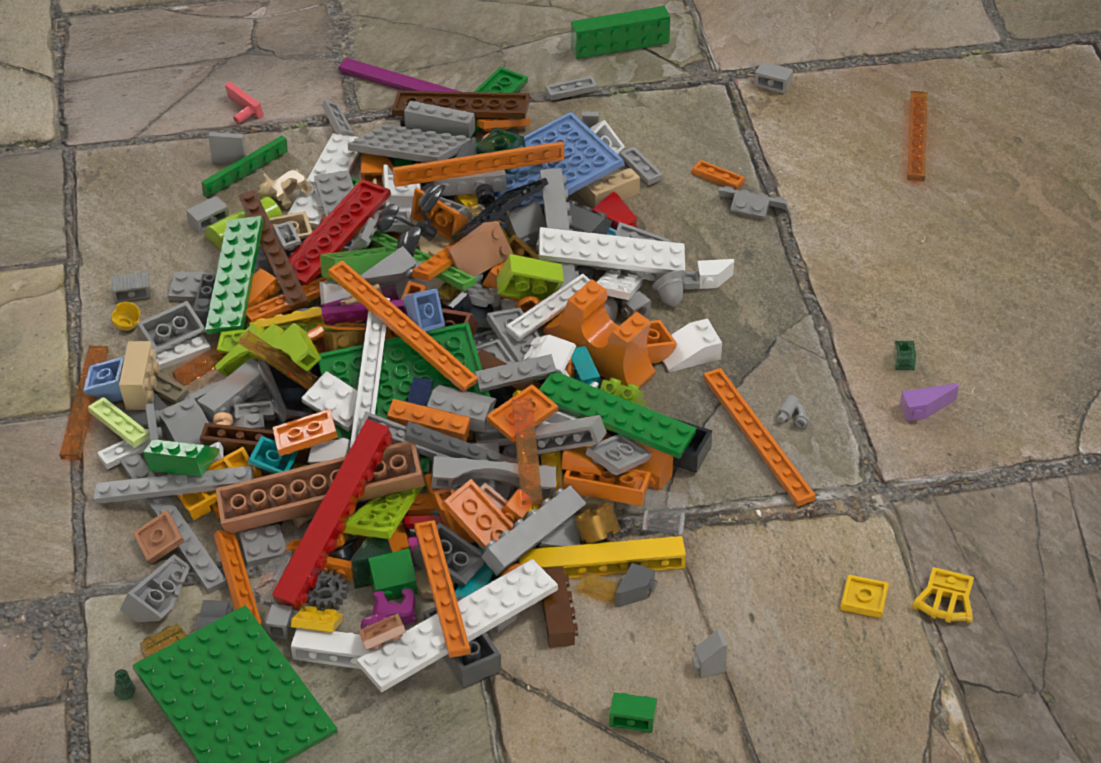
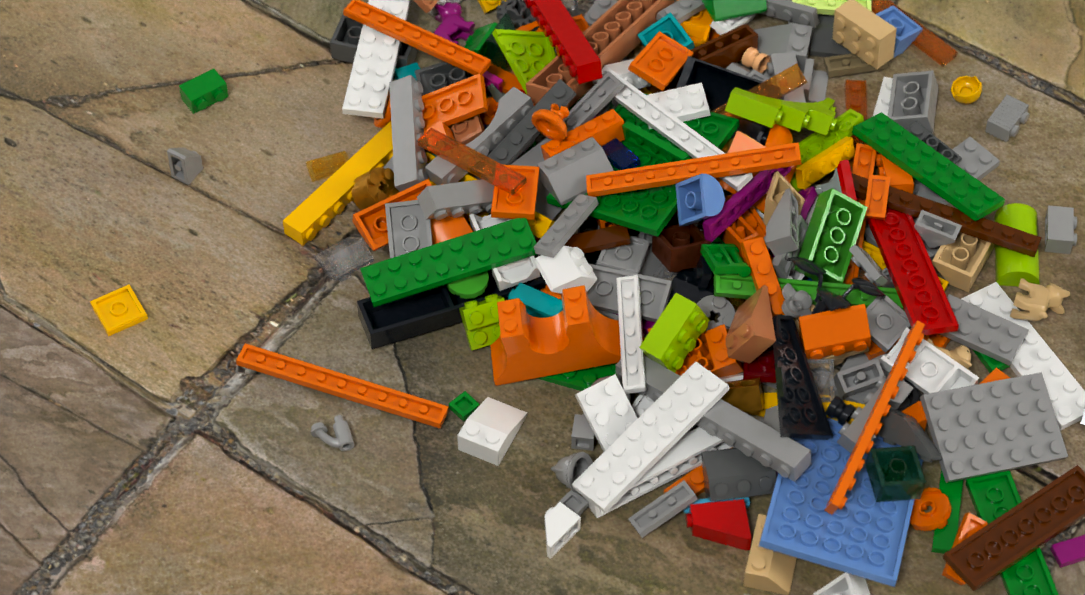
camera: 135 degrees right, 10 degrees up
(299, 266) = (877, 196): none -> orange plate
(308, 284) = (841, 181): none -> red piece
(393, 365) = (652, 144): none -> green plate
(439, 119) = (1013, 484): light grey brick -> none
(441, 241) = (795, 303): none -> light grey plate
(447, 418) = (551, 122): none -> orange hair
(449, 284) = (720, 262): none -> green plate
(558, 613) = (328, 116): reddish brown brick -> none
(635, 585) = (300, 180): dark grey slope -> none
(659, 342) = (525, 392): orange brick -> none
(691, 370) = (463, 405): none -> green plate
(904, 355) = (292, 572): clear green brick -> none
(926, 401) = (229, 529): medium lavender slope -> none
(949, 585) = (53, 364): yellow plate -> none

